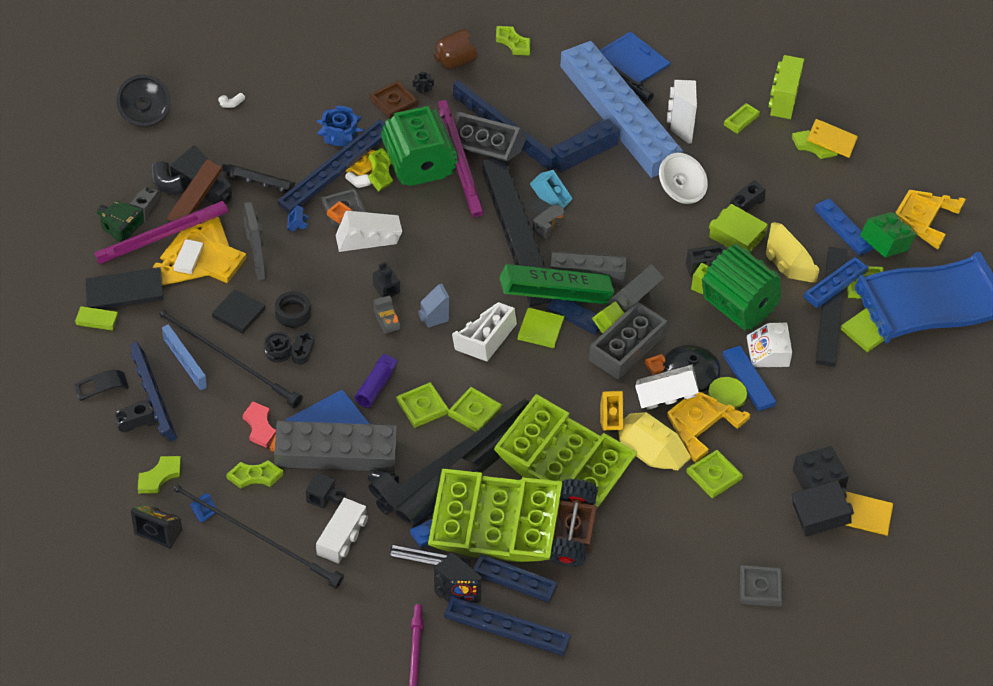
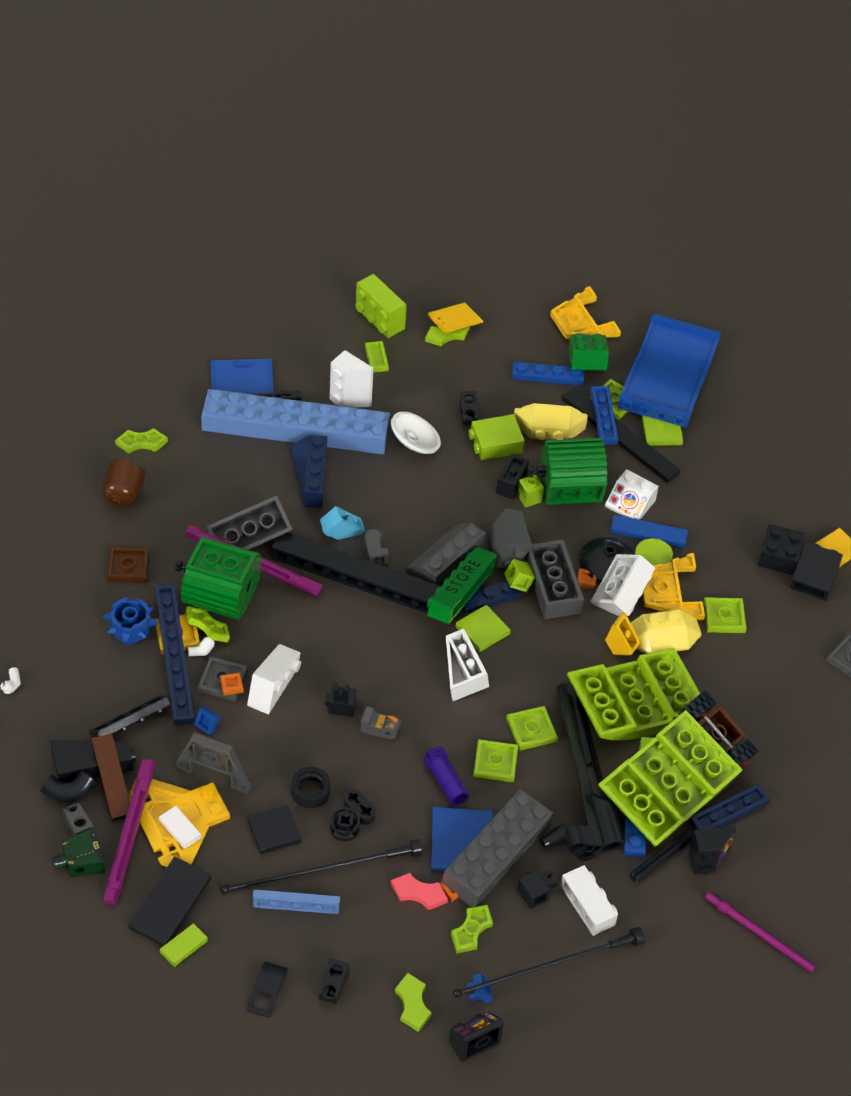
camera: 55 degrees left, 0 degrees up
(149, 385) = (307, 947): dark blue plate -> none
(423, 82) = (133, 531): black gear -> none
(435, 307) = (406, 682): sand blue slope -> none
(486, 111) = (223, 509): dark blue plate -> none
(507, 626) = (773, 845): dark blue plate -> none

